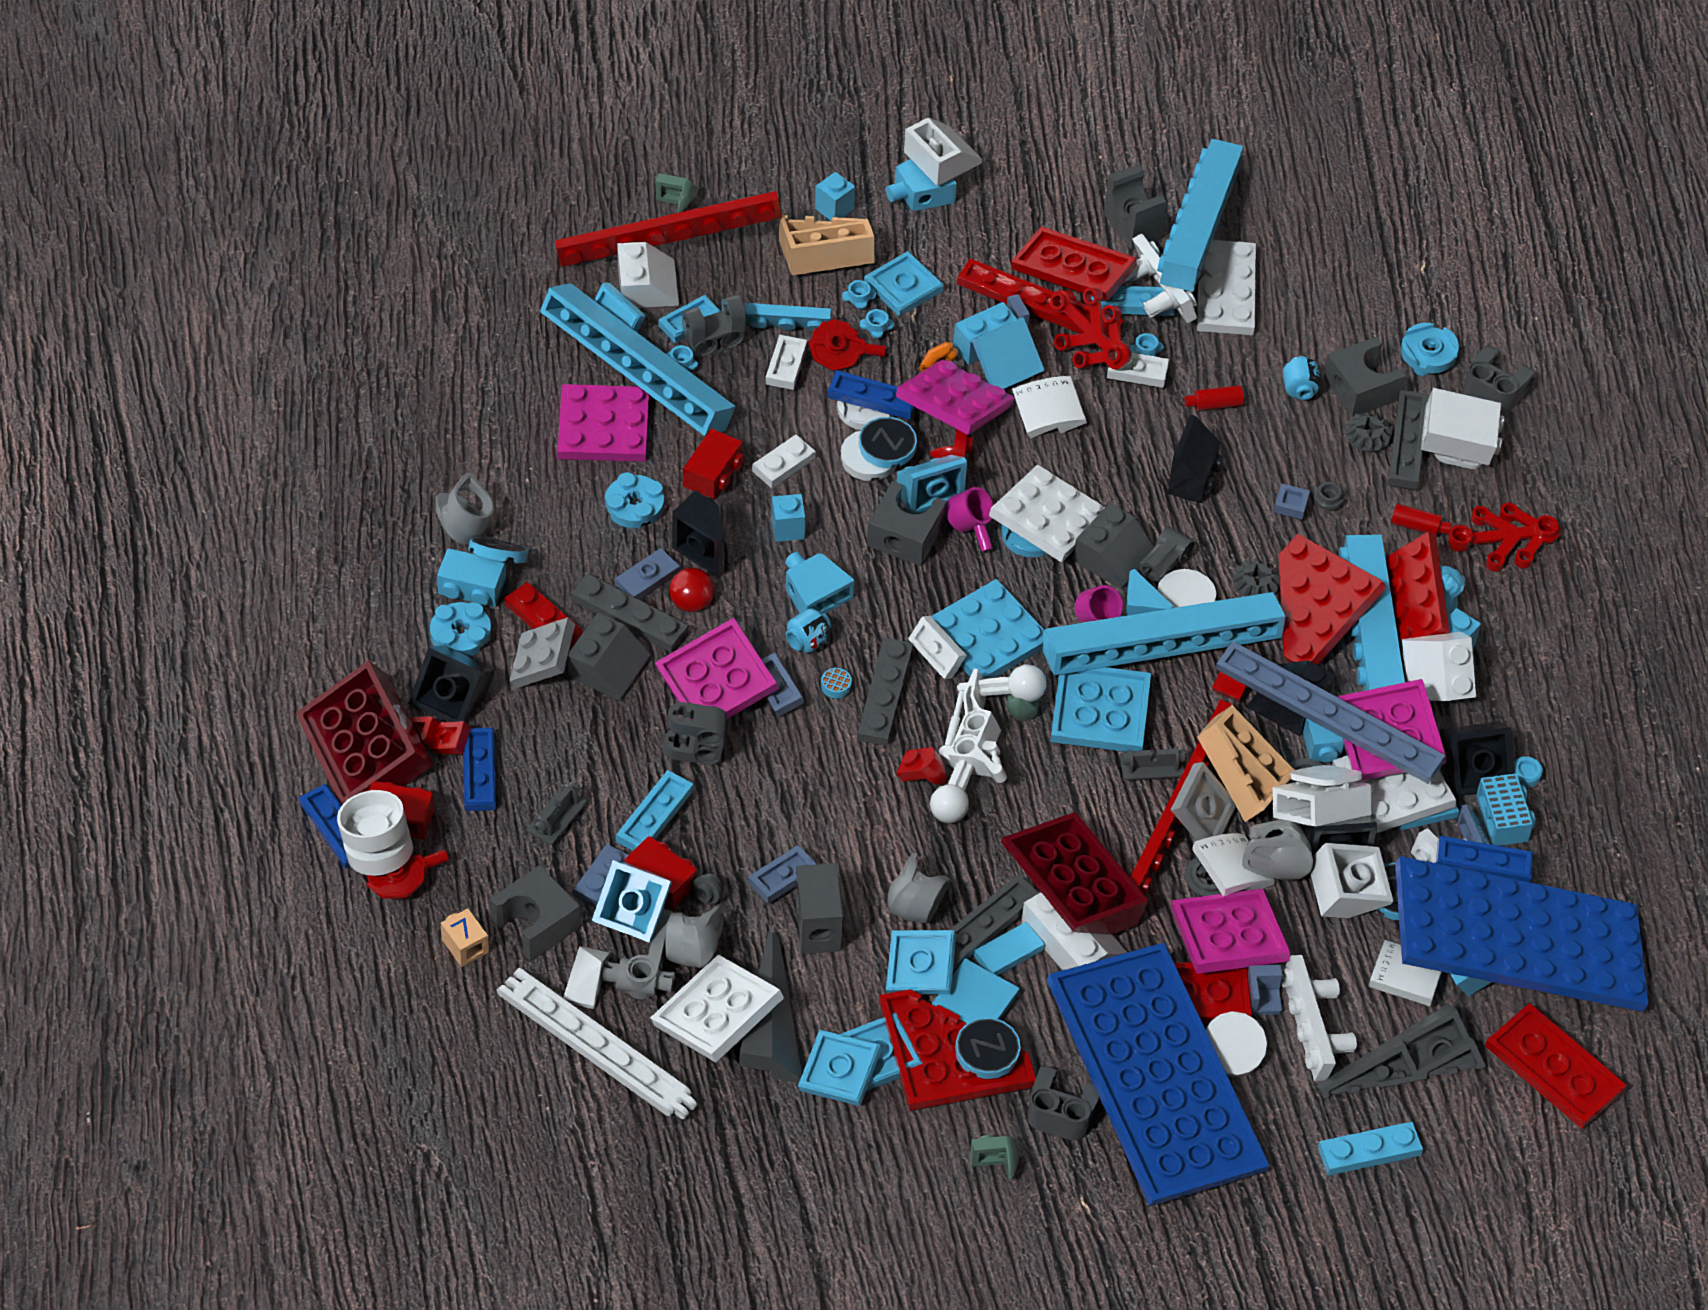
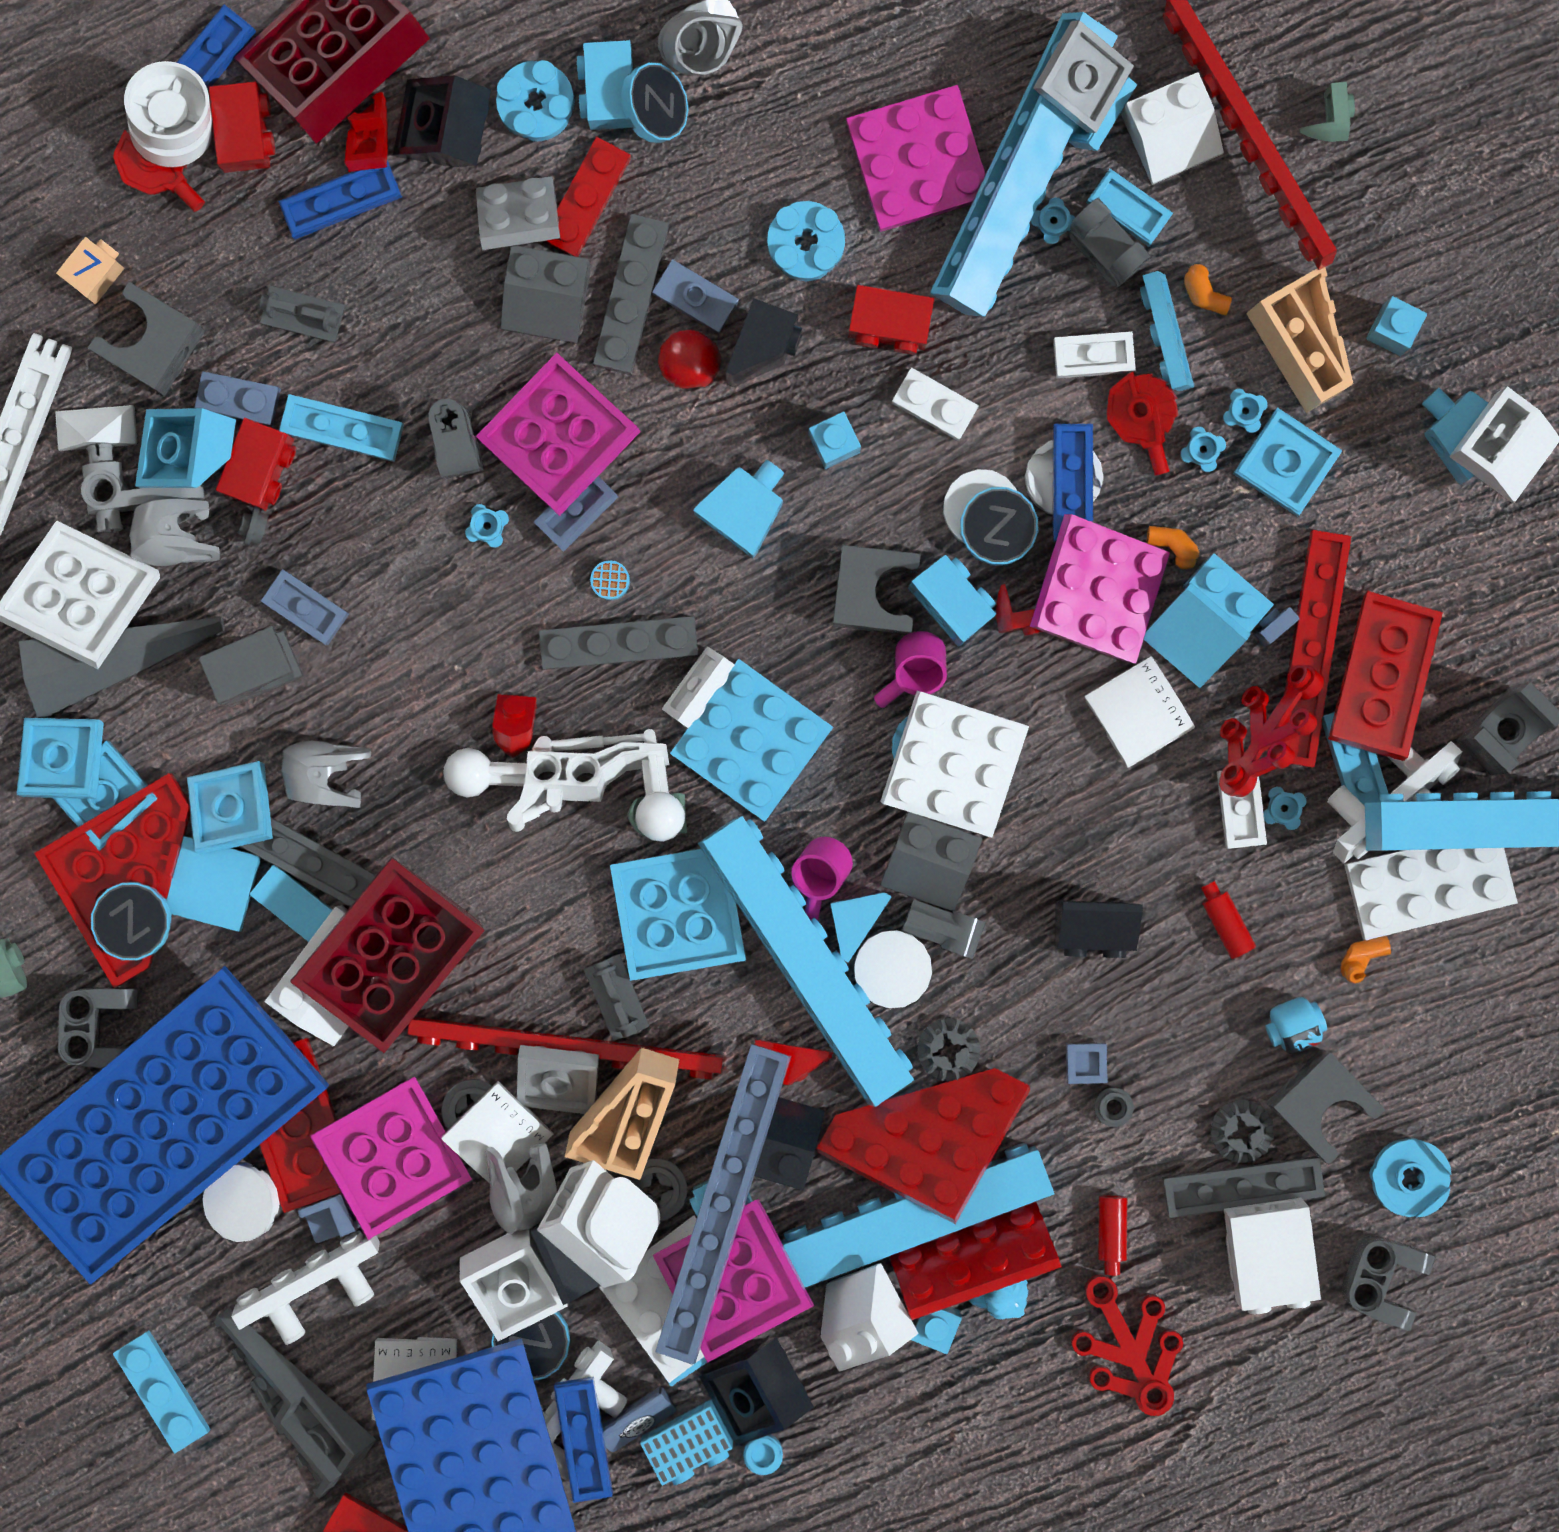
camera: 75 degrees right, 35 degrees up
(594, 298) = (1083, 76): none -> light grey plate
(766, 295) = (1201, 291): none -> orange arm
(768, 738) = (480, 516): none -> medium azure plate
(808, 631) = (669, 522): medium azure head -> none
(1263, 336) = (1359, 955): none -> orange arm

